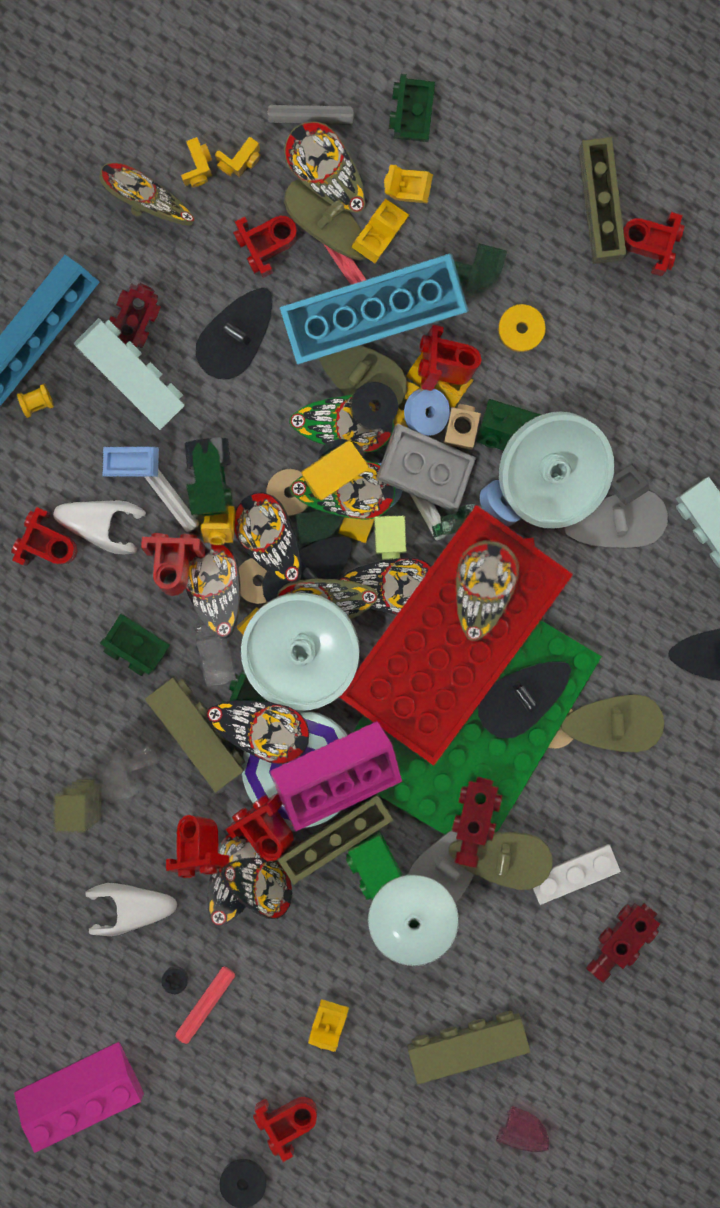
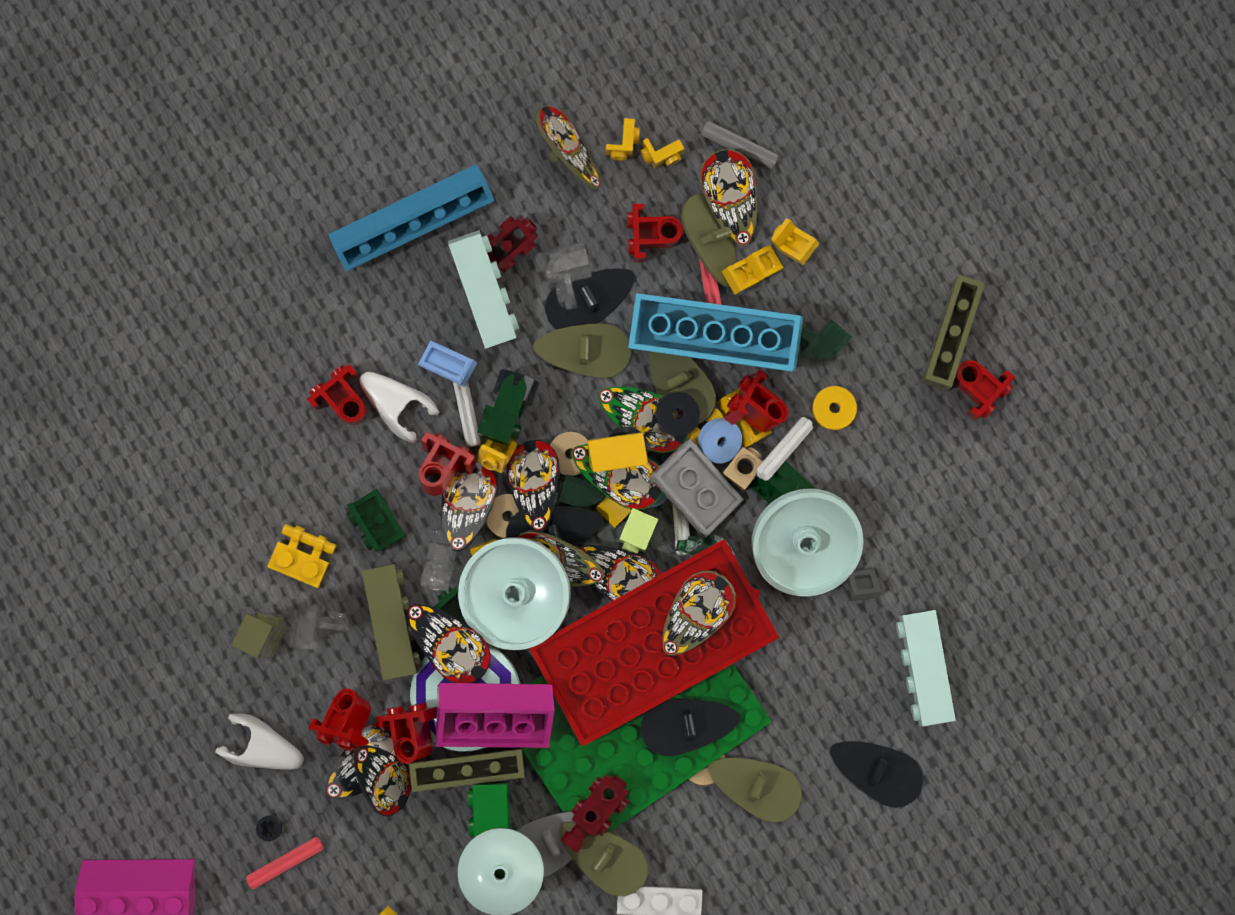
camera: 15 degrees right, 5 degrees down
(35, 400) = (391, 274): yellow bush -> none
(81, 720) = (298, 564): none -> yellow plate
(199, 314) = (566, 267): none -> clear brick
(257, 384) = (586, 349): none -> olive shield
(413, 109) = (828, 181): dark green bracket -> none
(492, 390) = (784, 448): none -> white axle
(496, 505) = (741, 547): light blue piece -> none
(622, 525) = (839, 616): light grey shield -> none

